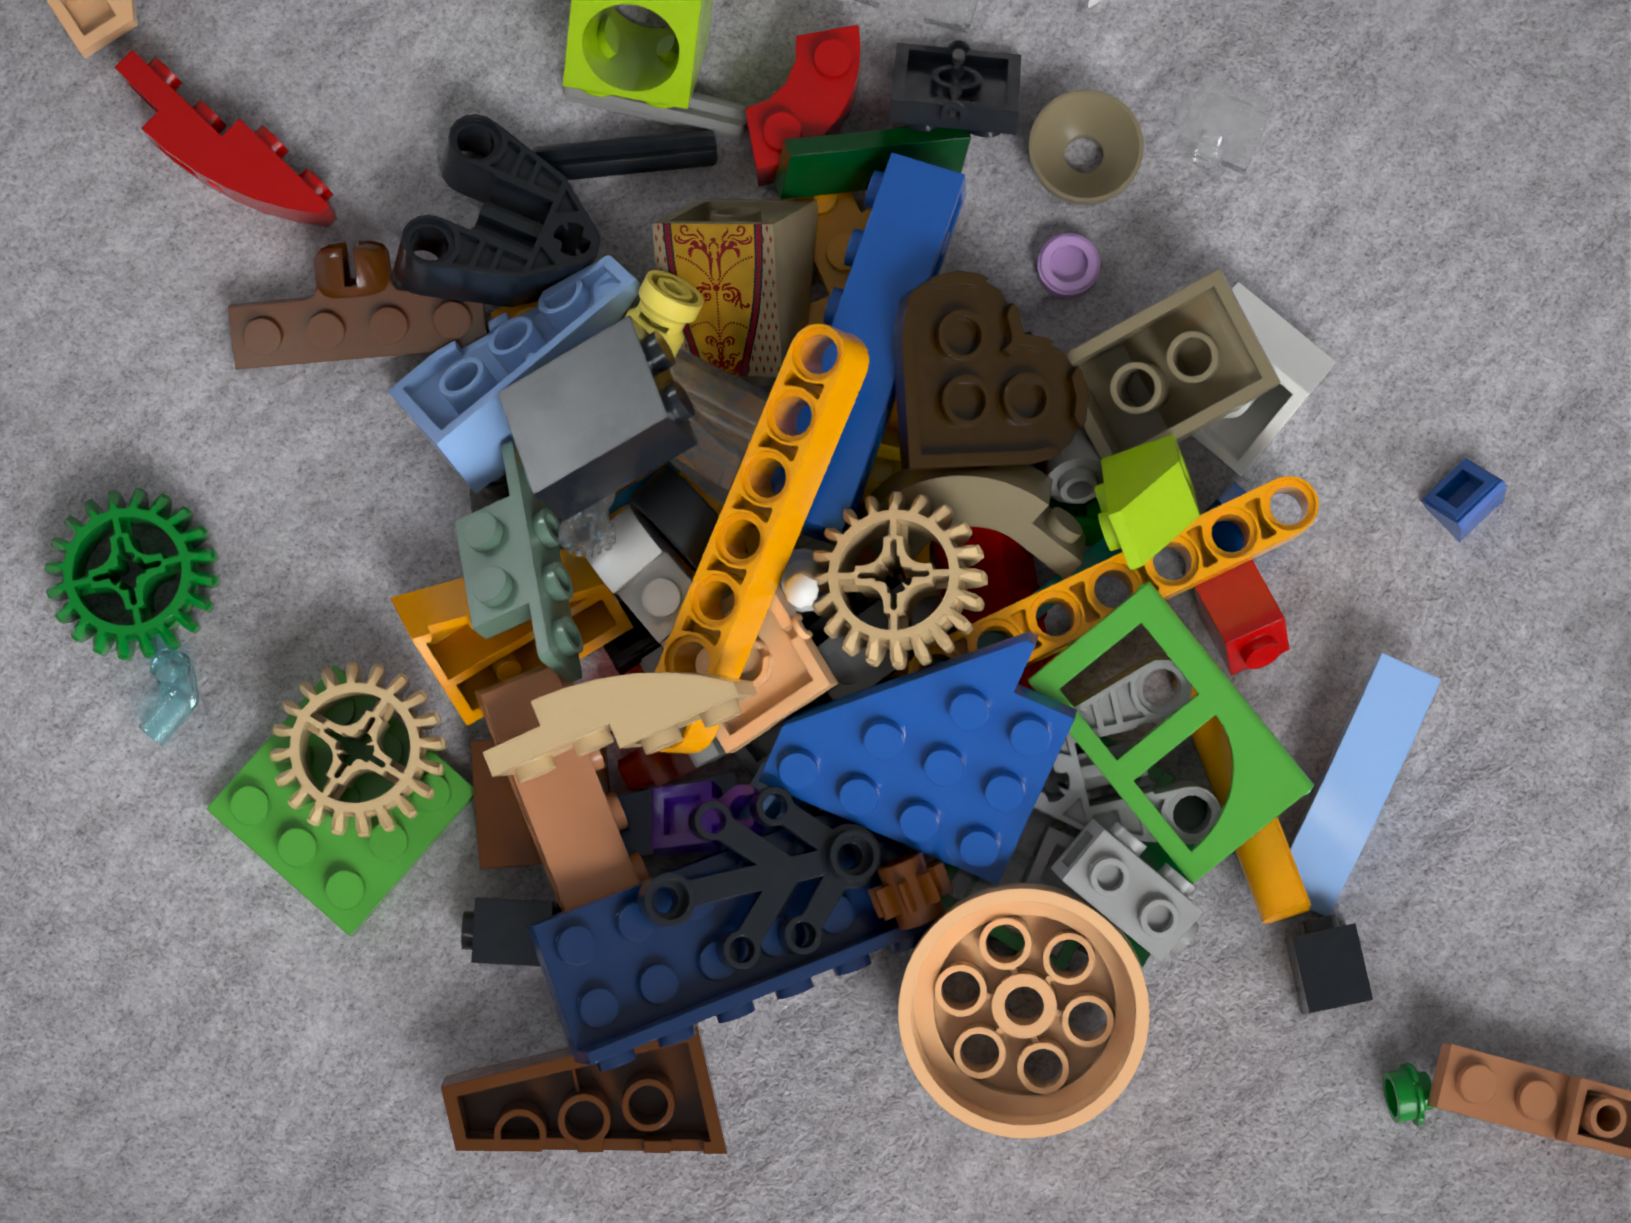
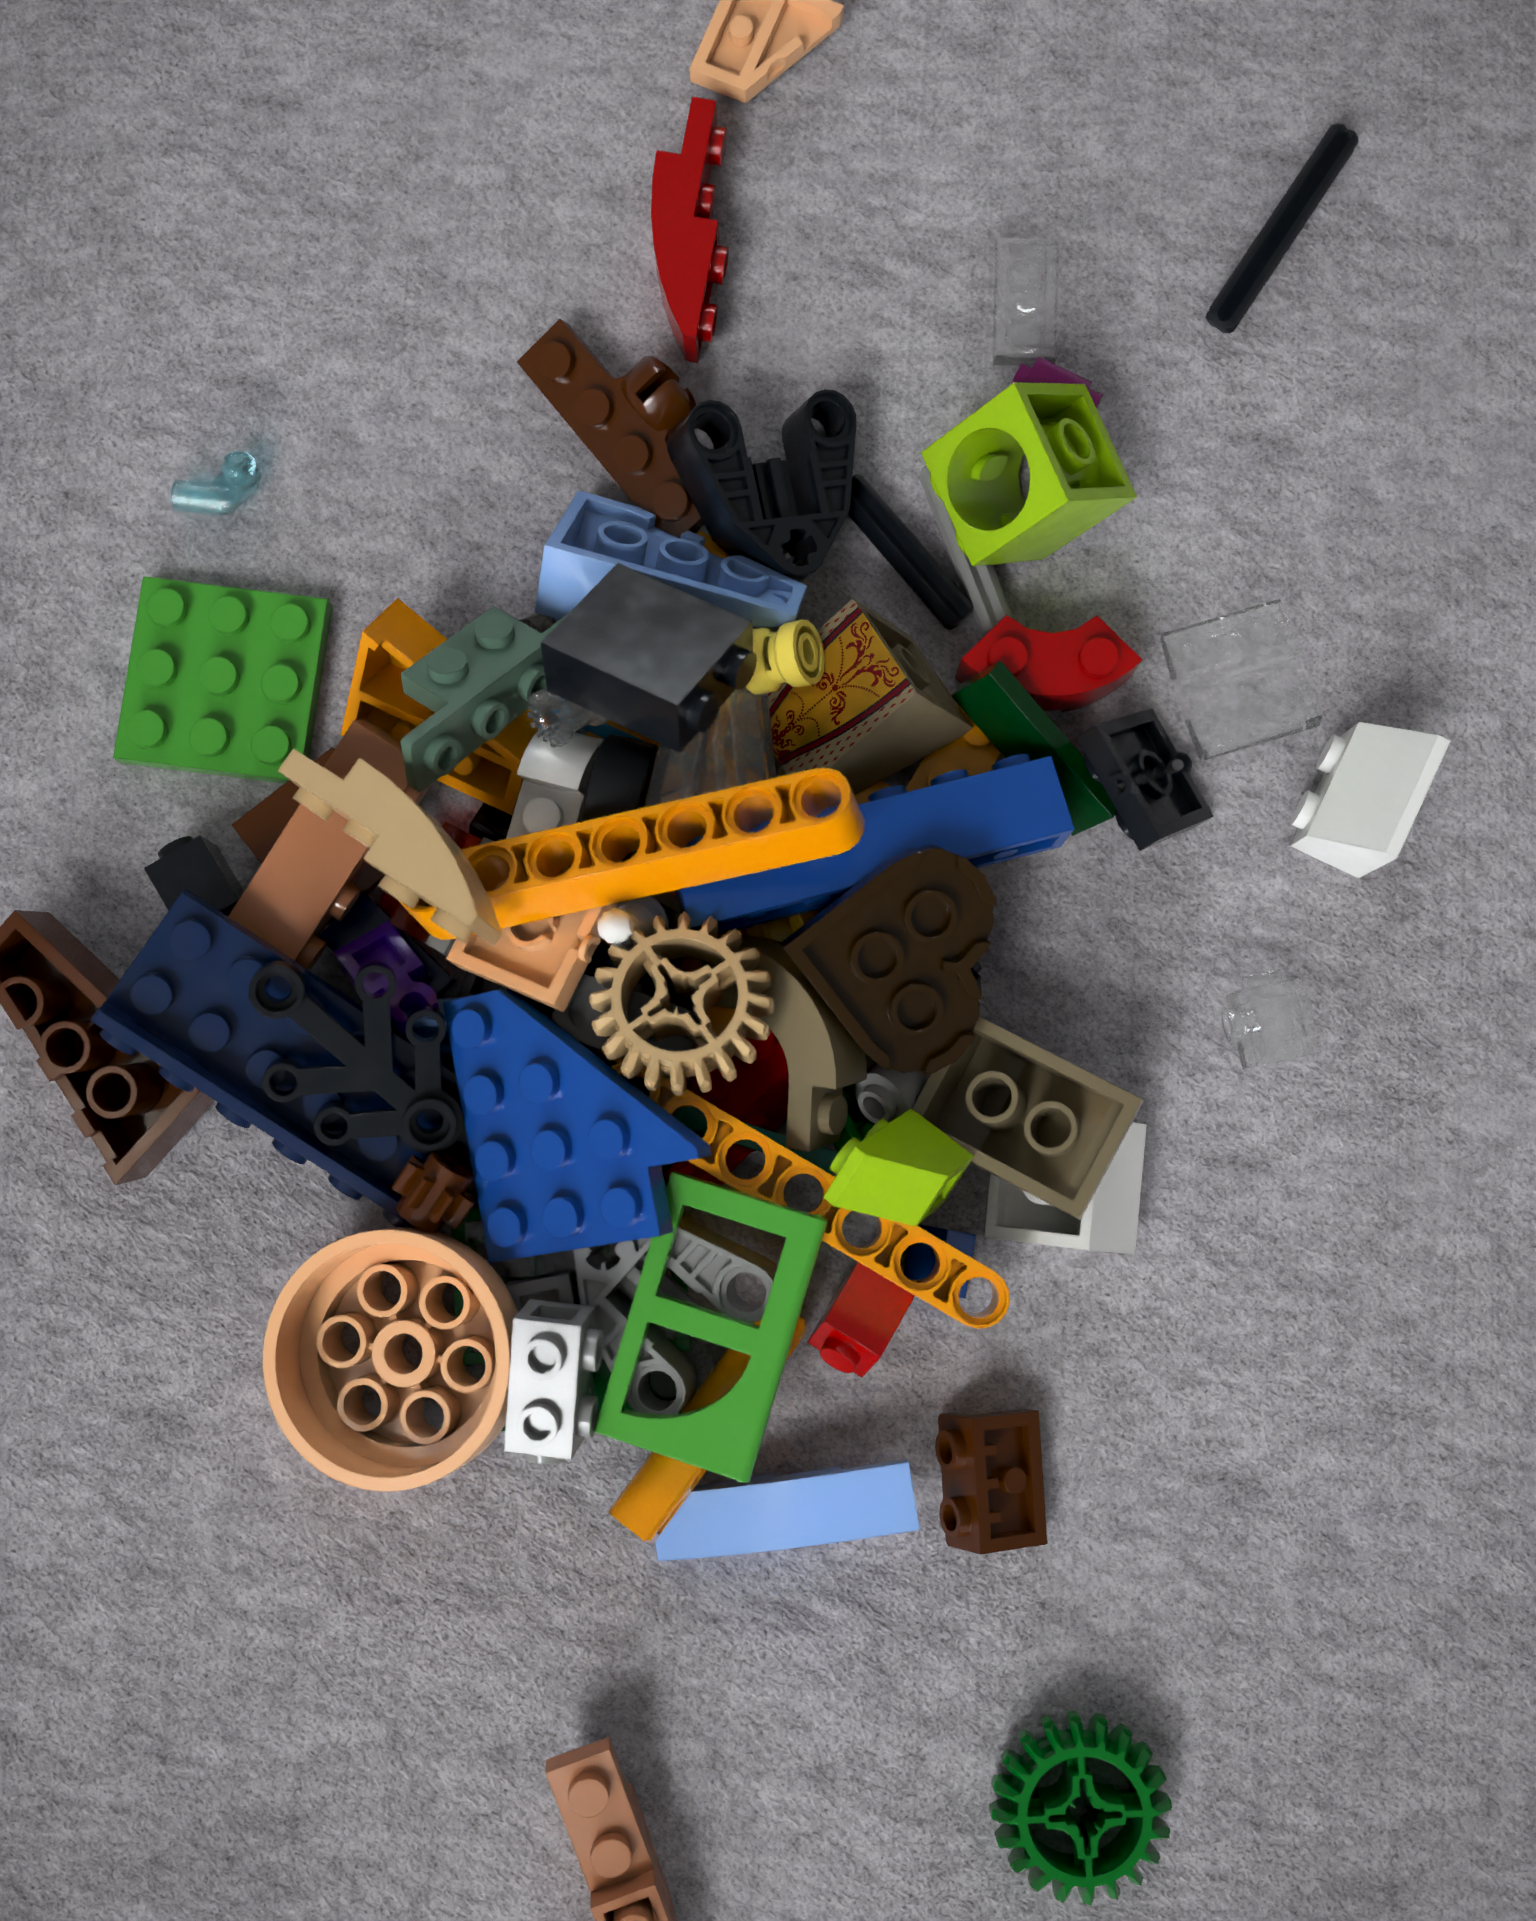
camera: 55 degrees right, 0 degrees up
(101, 580) = (320, 354): green gear -> none
(341, 775) = (209, 655): tan gear -> none
(1068, 266) = (1062, 973): lavender tile -> none
(1091, 117) = (1197, 901): dark tan piece -> none
(1327, 965) = (612, 1591): black brick -> none
(1407, 1094) = (549, 1732): green plate -> none
(1440, 601) = (991, 1480): none -> reddish brown bracket
(1465, 498) = (1095, 1440): blue slope -> none

